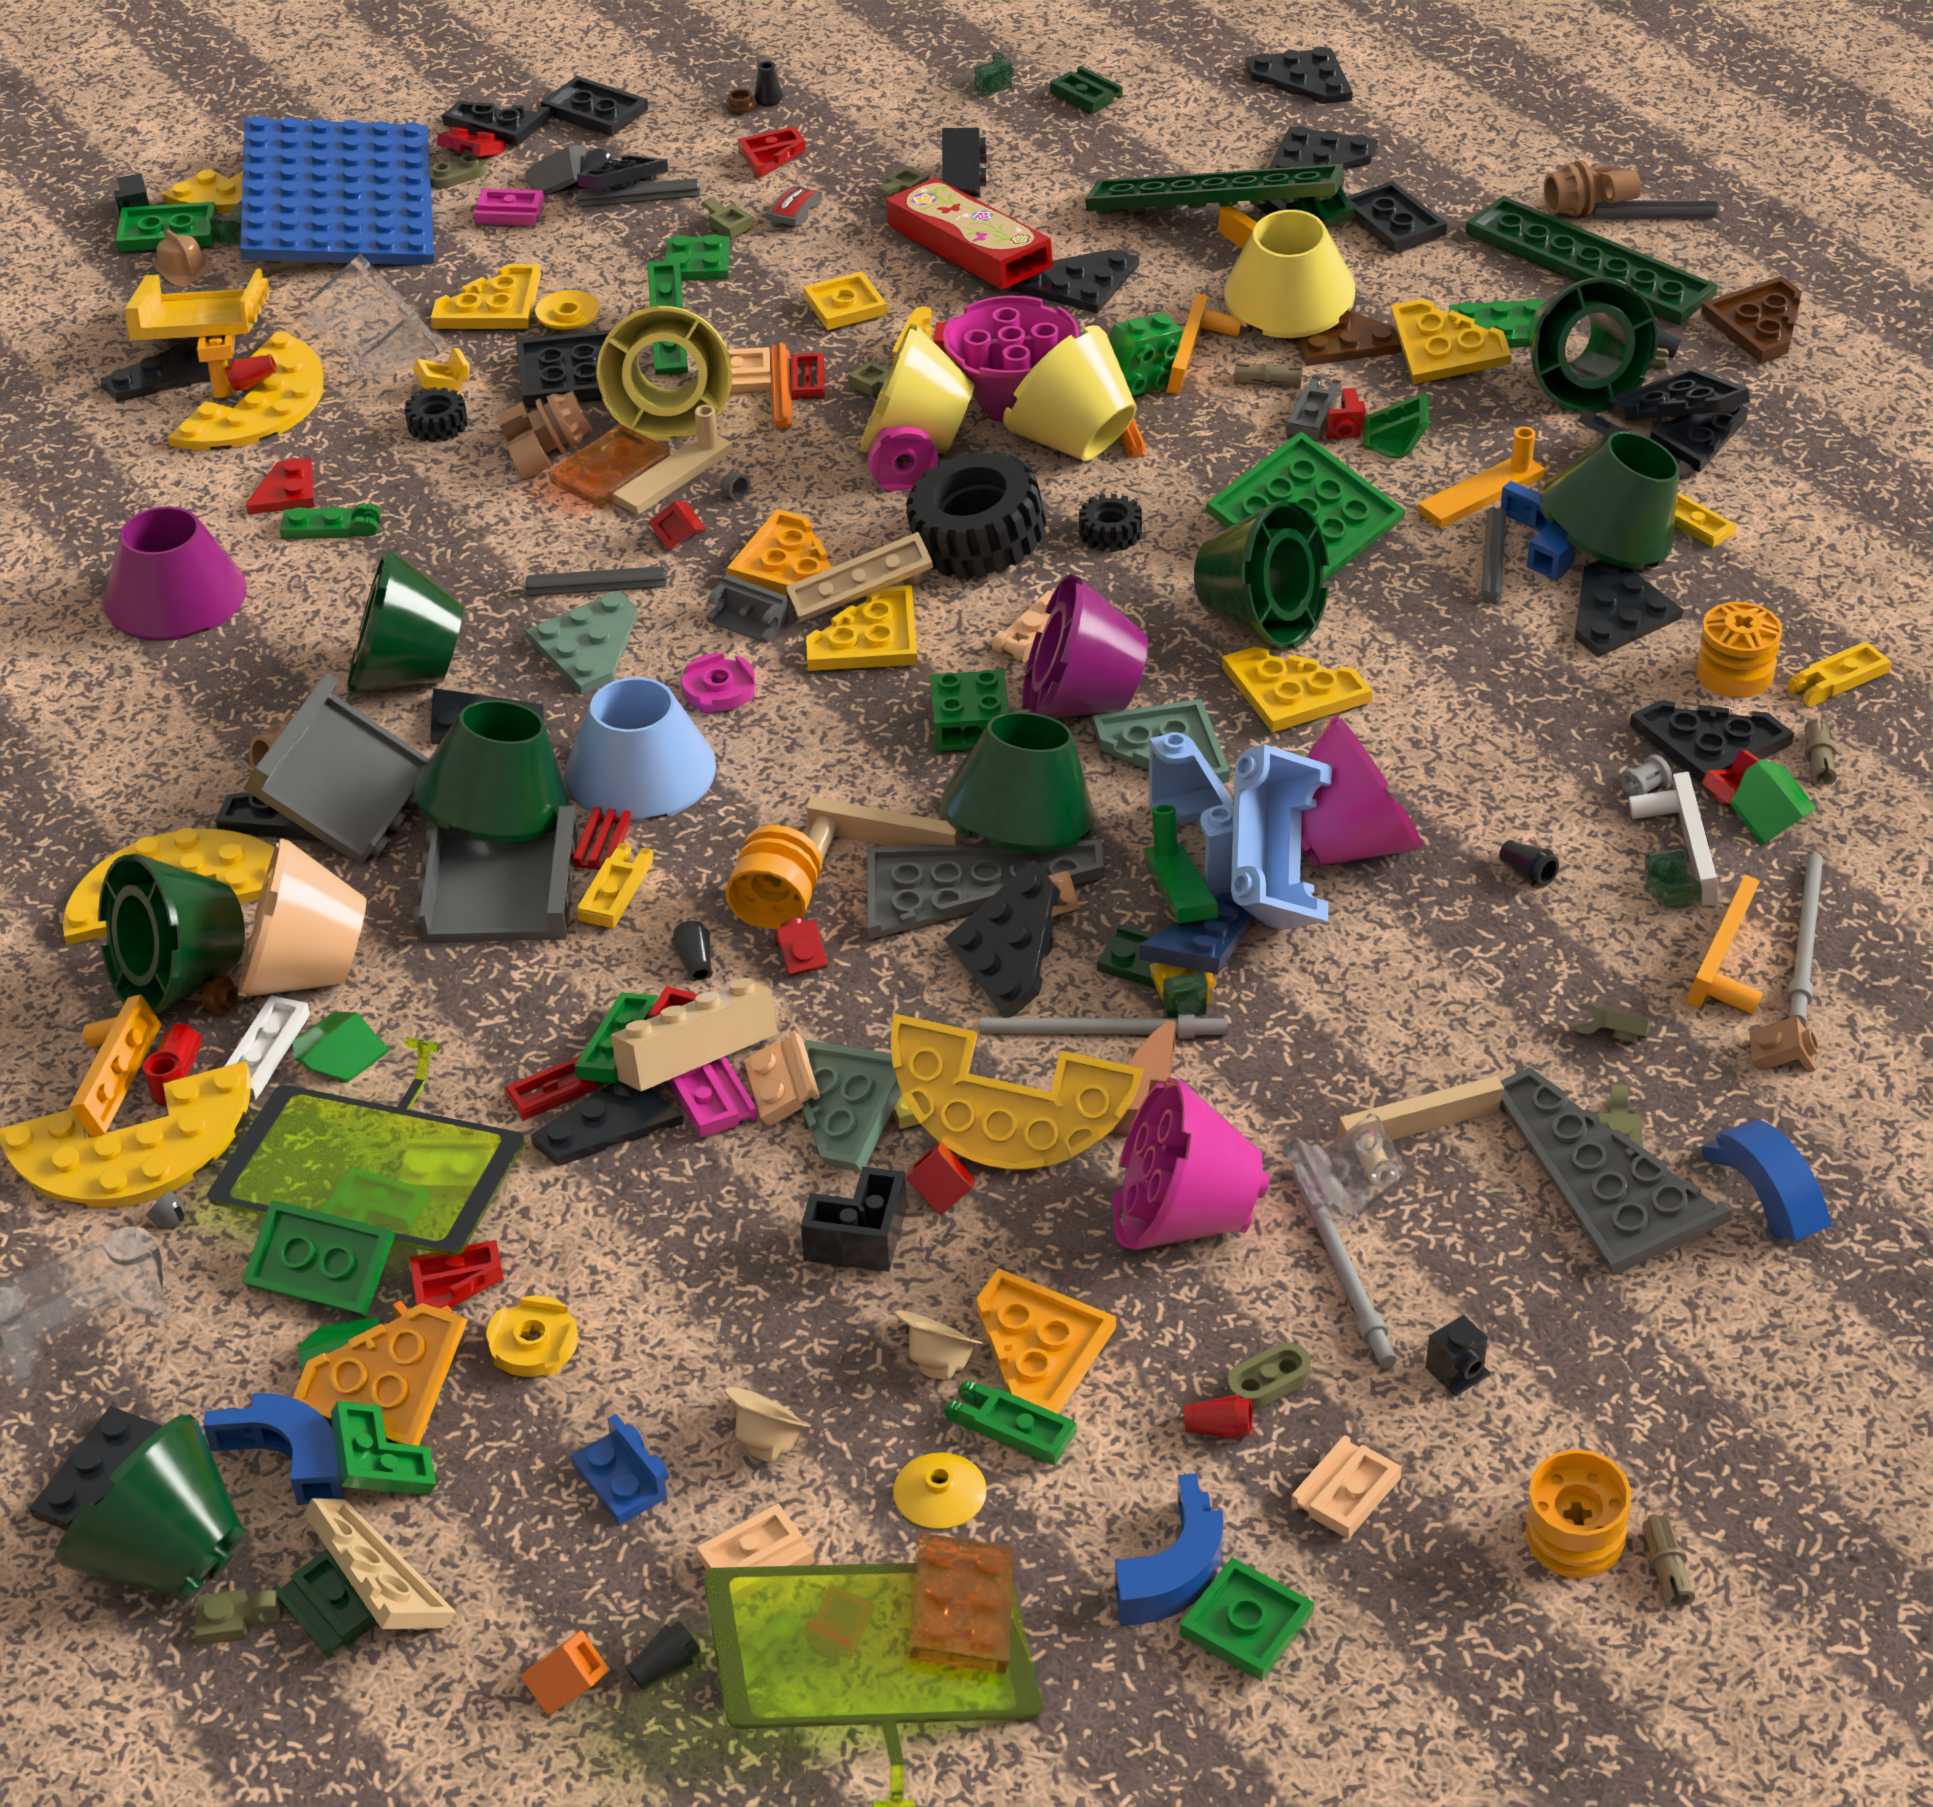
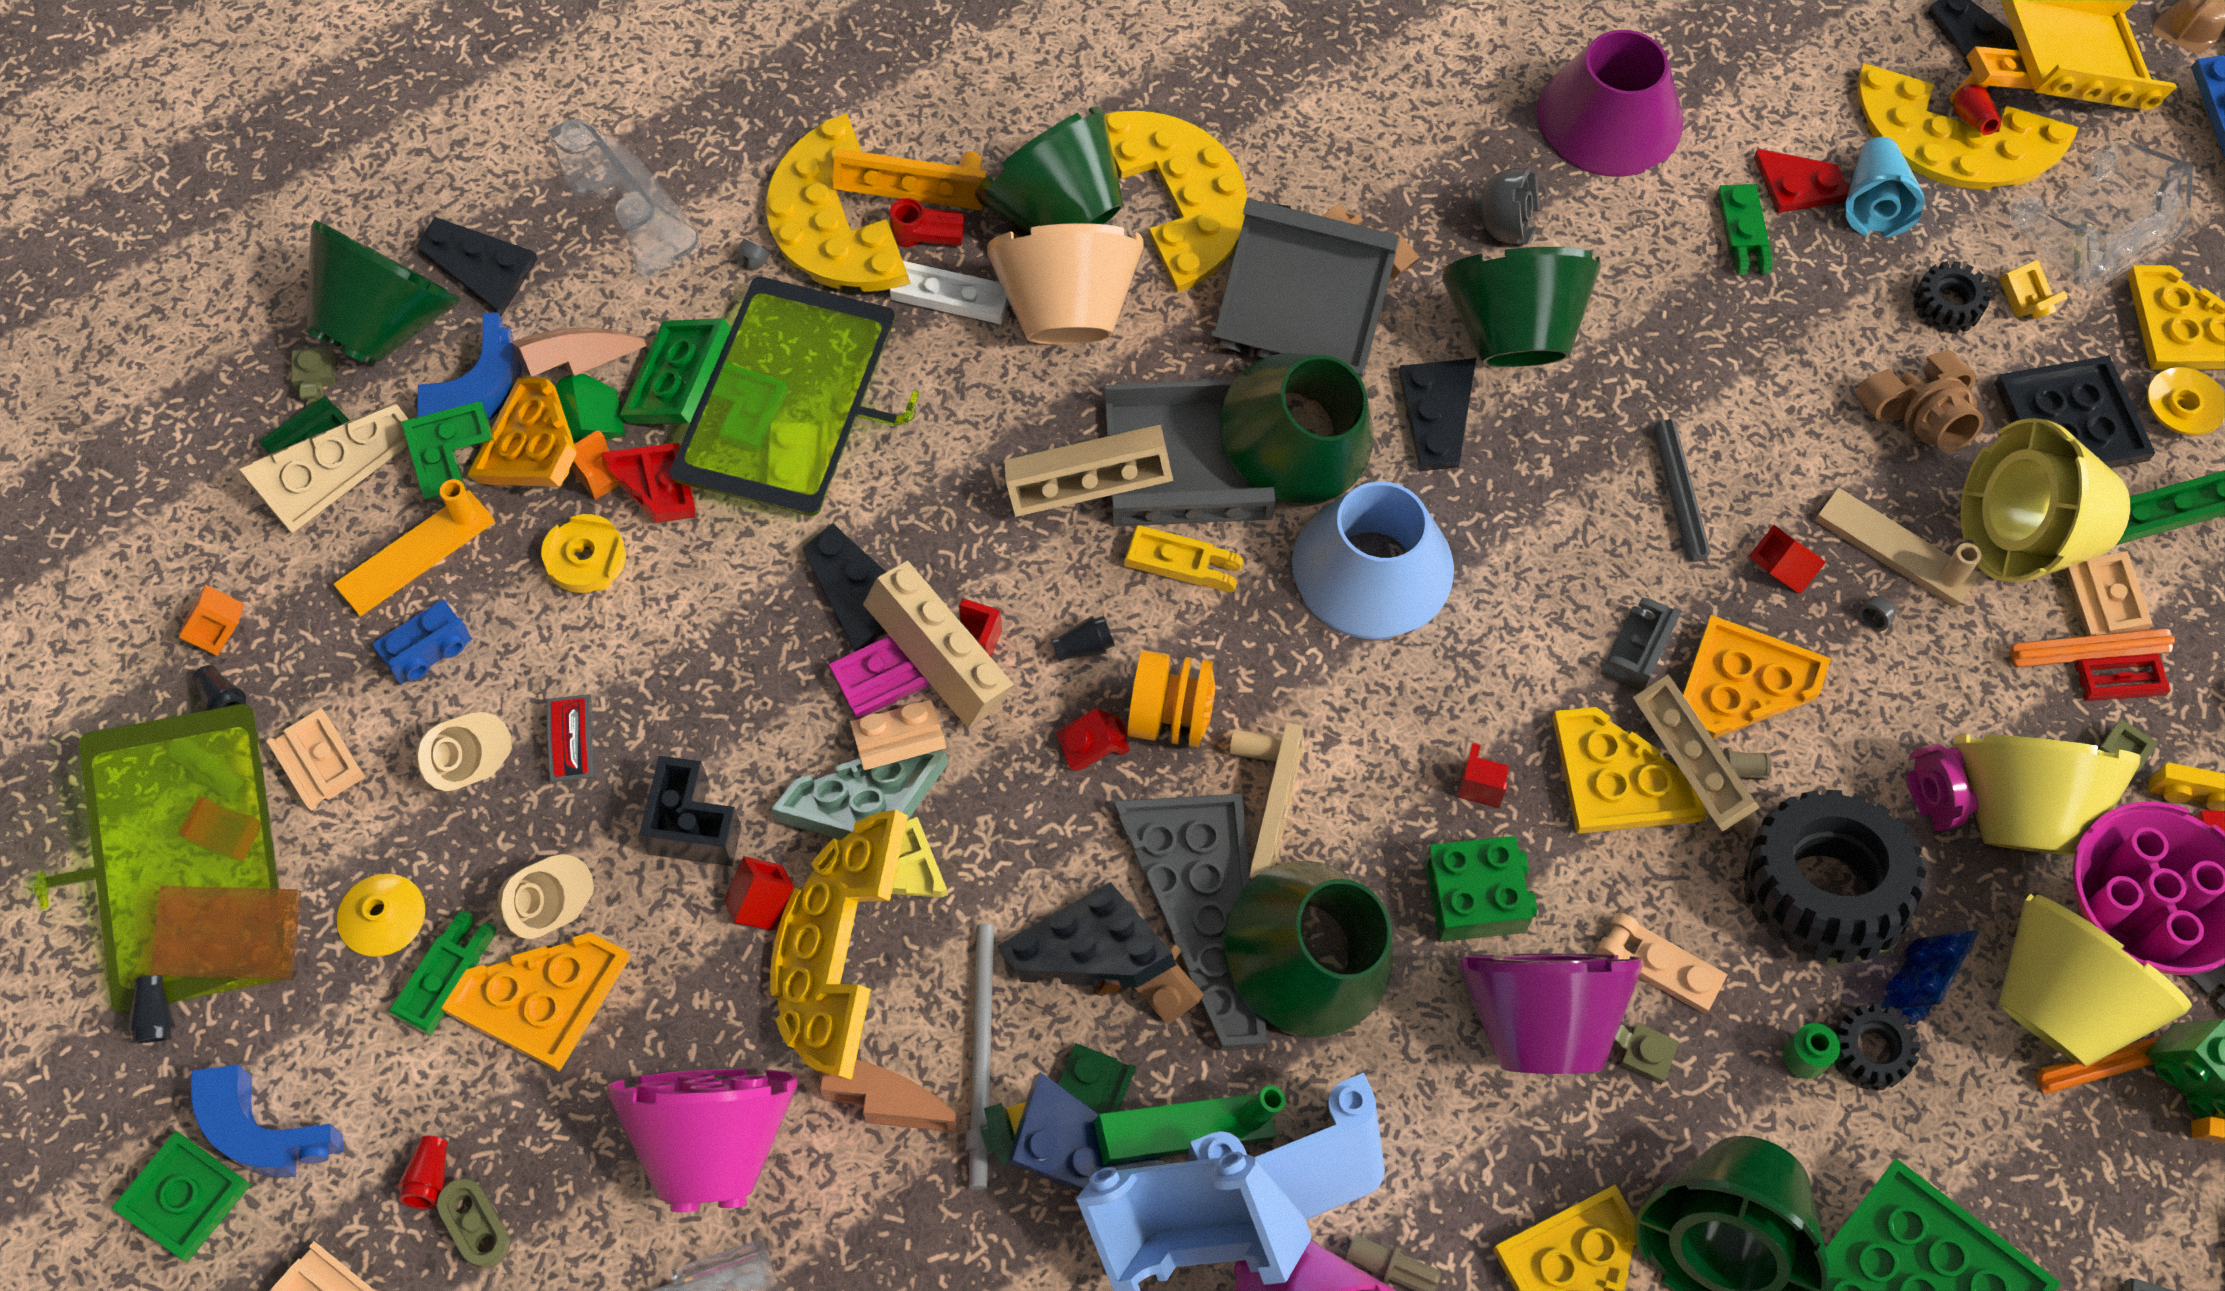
camera: 85 degrees right, 20 degrees up
(272, 1345) = (574, 348): none -> slope
(273, 648) = (1507, 203): none -> dark grey cylinder
(315, 432) = (1883, 191): none -> medium azure cone
(339, 1046) = (955, 351): green slope -> none
(499, 1488) = (416, 550): none -> light orange piece
(516, 929) = (1088, 470): none -> tan brick
(553, 1092) = (917, 560): red tile -> none
(587, 640) = (1578, 493): sand green plate -> none
(590, 831) = (1258, 527): red tile -> none
(598, 1058) = (959, 580): green plate -> none
(608, 465) = (1891, 478): clear orange plate -> none
(734, 686) = (1508, 647): dark pink plate -> none
(742, 1333) = (570, 738): none -> slope
(863, 709) = (1483, 779): none -> red panel
(1049, 1665) = (150, 1011): none -> black cone
(1060, 478) = (1927, 973): none -> clear blue hinge
(1116, 548) = (1811, 1051): none -> green brick
(1128, 732) = (1456, 1120): sand green plate -> none

